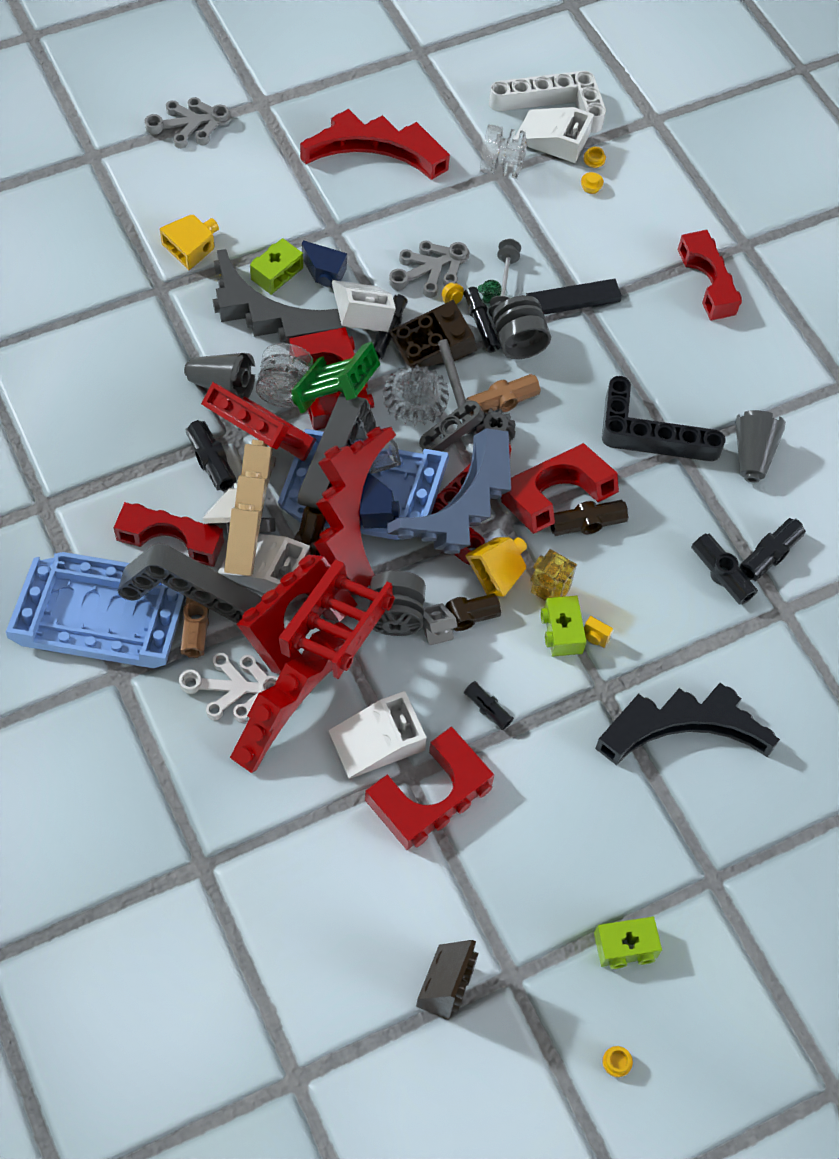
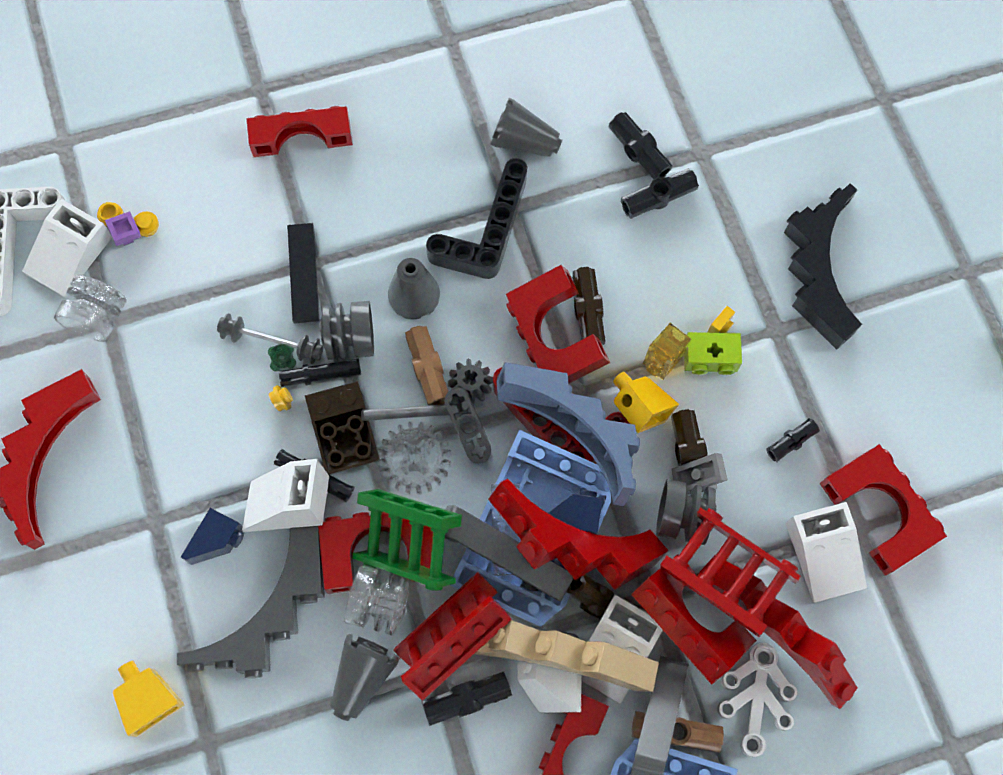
camera: 80 degrees left, 10 degrees up
(276, 266) = (219, 602): lime brick -> none
(455, 255) = (232, 415): light grey plant -> none
(574, 373) = (413, 290): none -> dark grey cone
(581, 164) = (123, 229): none -> medium lavender tile

